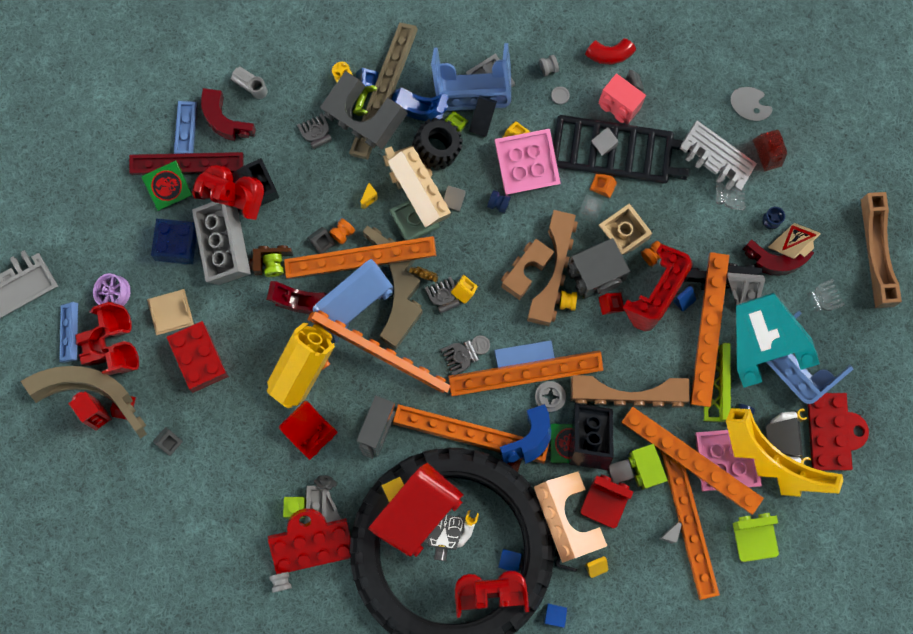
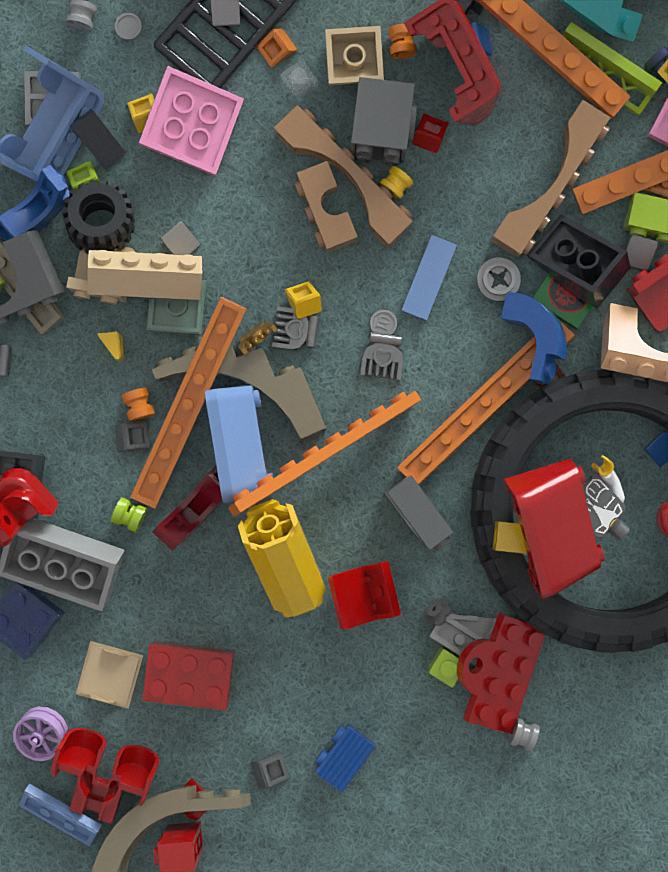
camera: 50 degrees left, 10 degrees up
(201, 480) = (344, 757): none -> blue brick
(256, 262) = (113, 534): reddish brown bracket -> none
(498, 201) = (221, 187): dark blue wheel -> none
(525, 373) = (453, 290): orange plate -> none

